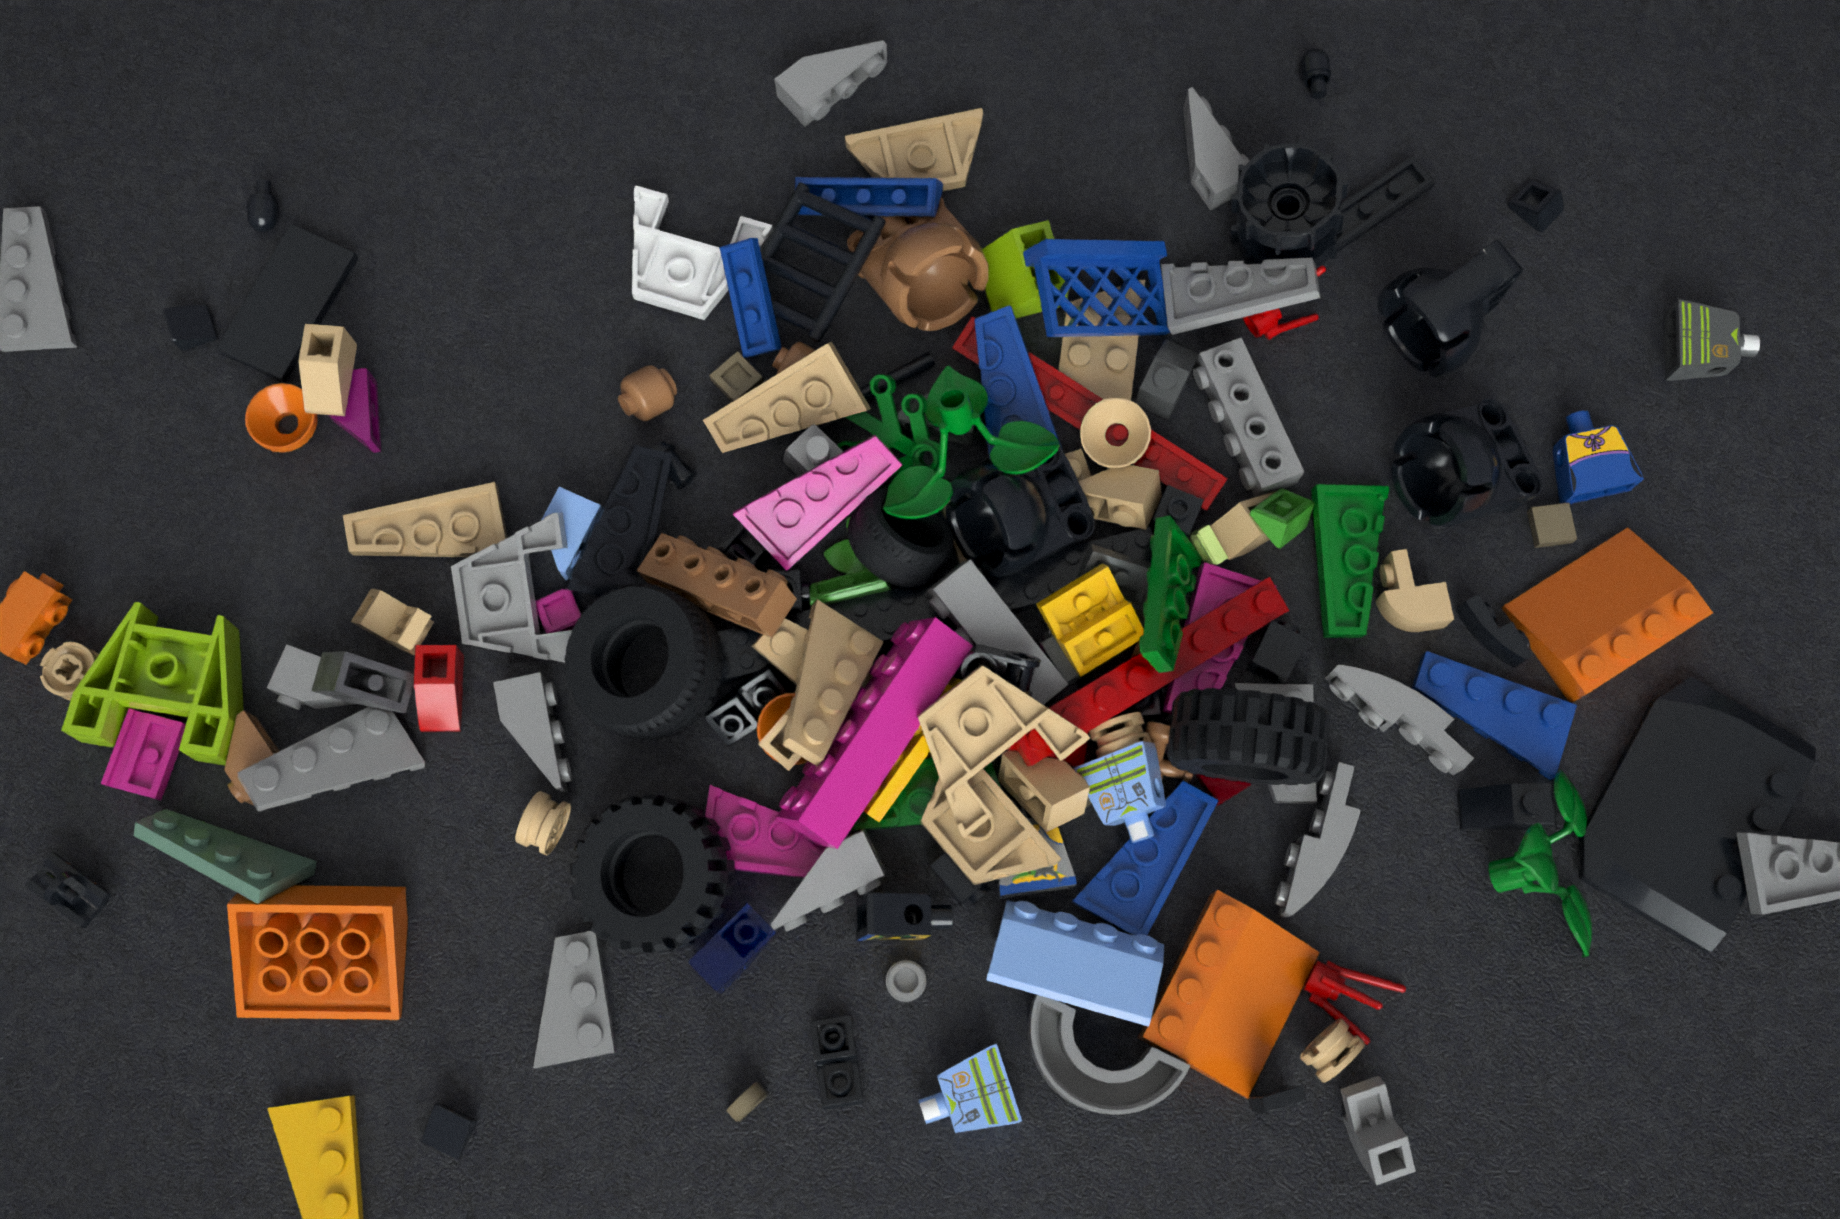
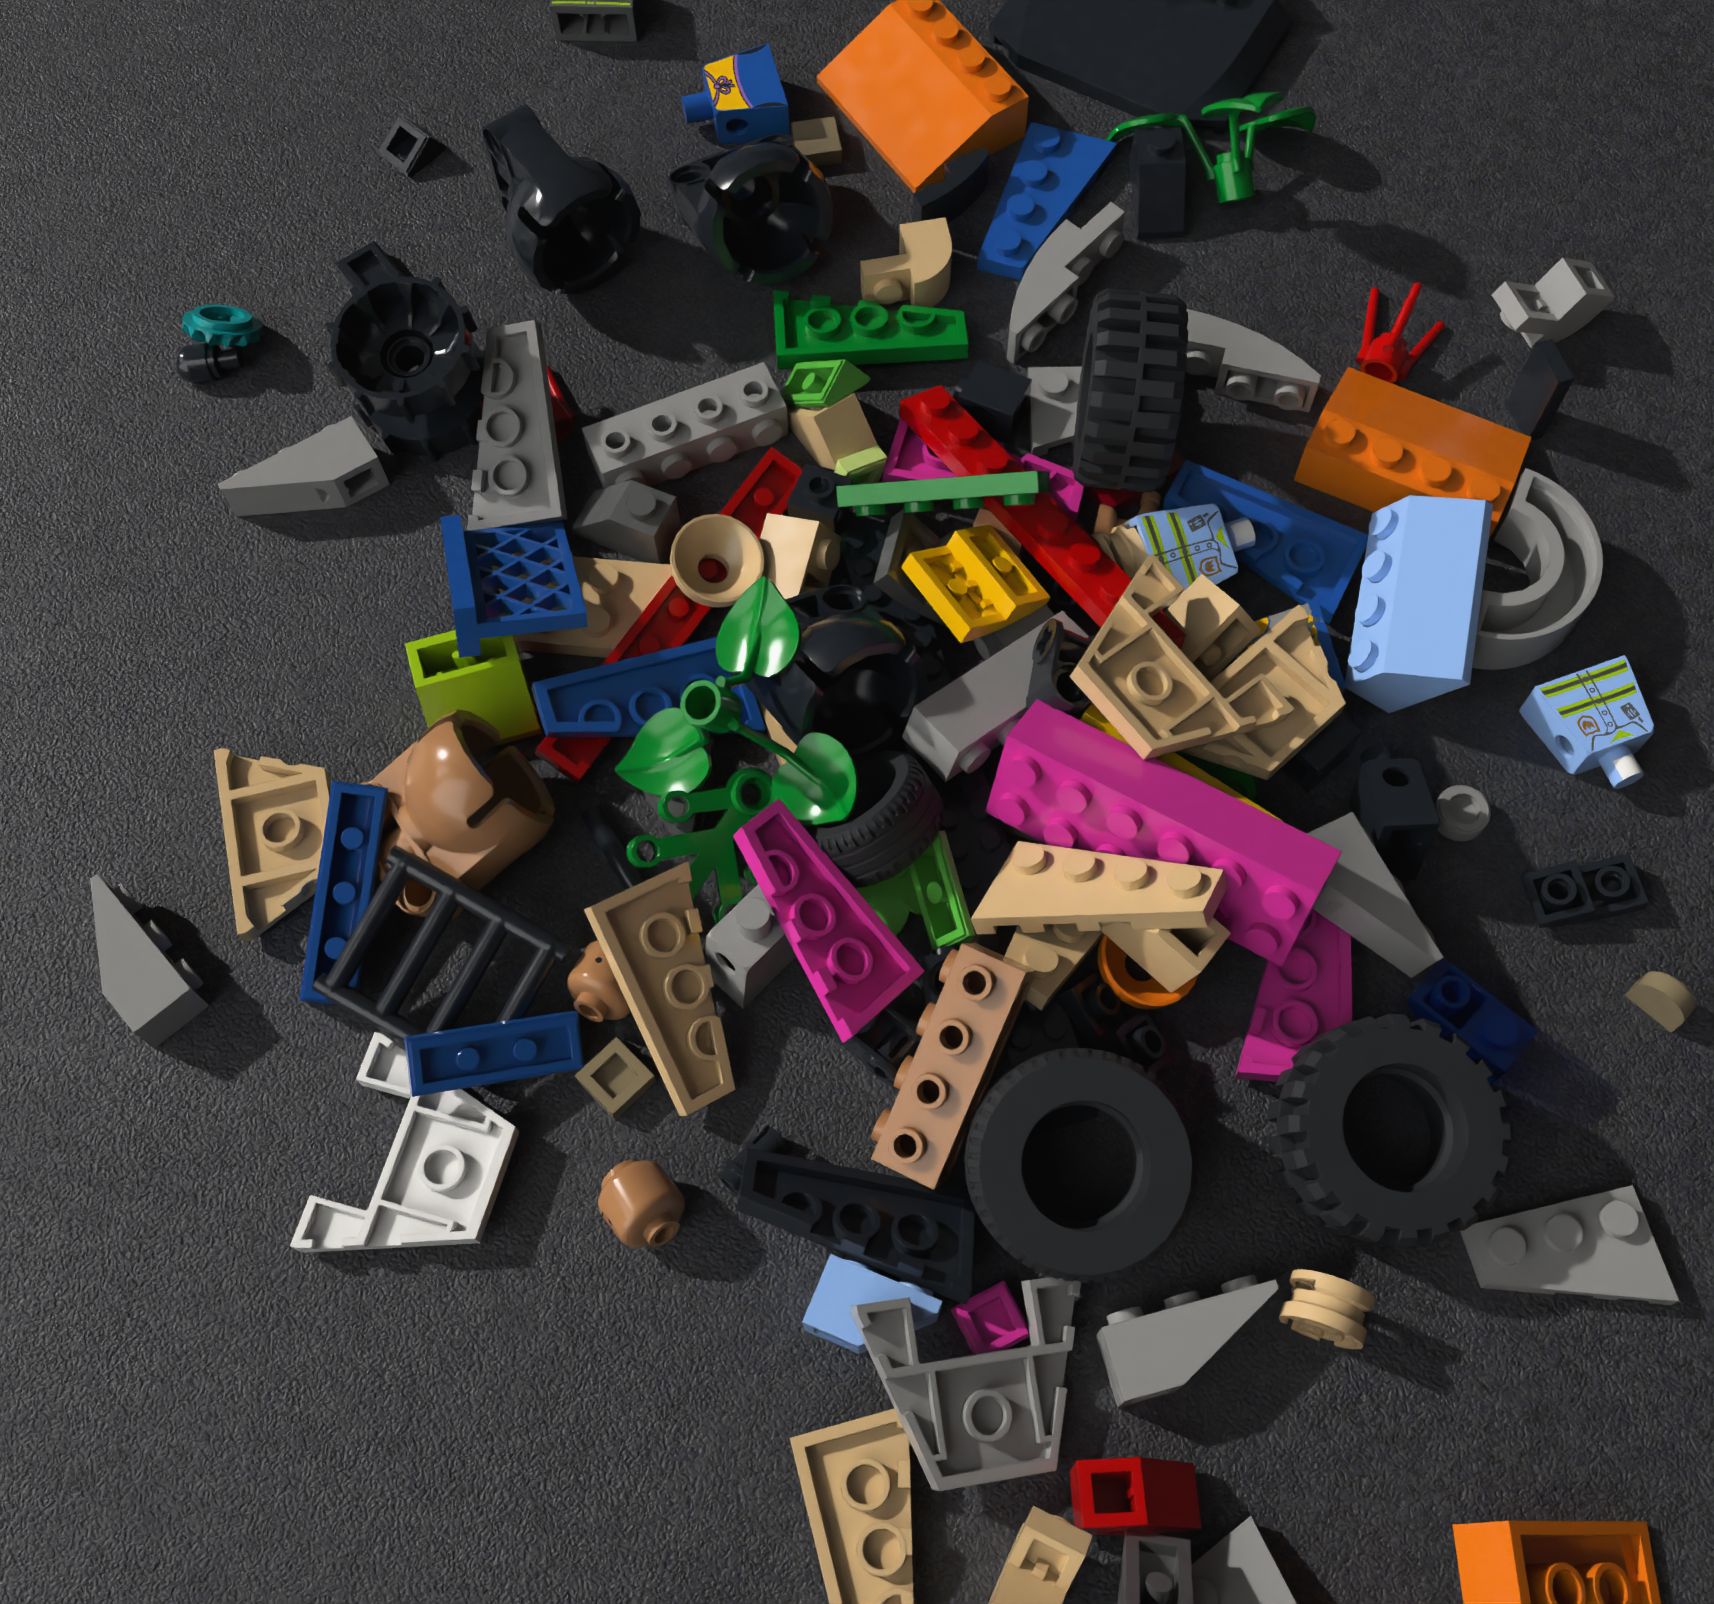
camera: 90 degrees left, 10 degrees down
(1332, 1050) = (1465, 347): tan wheel -> none
(1353, 72) = (221, 325): none -> teal gear

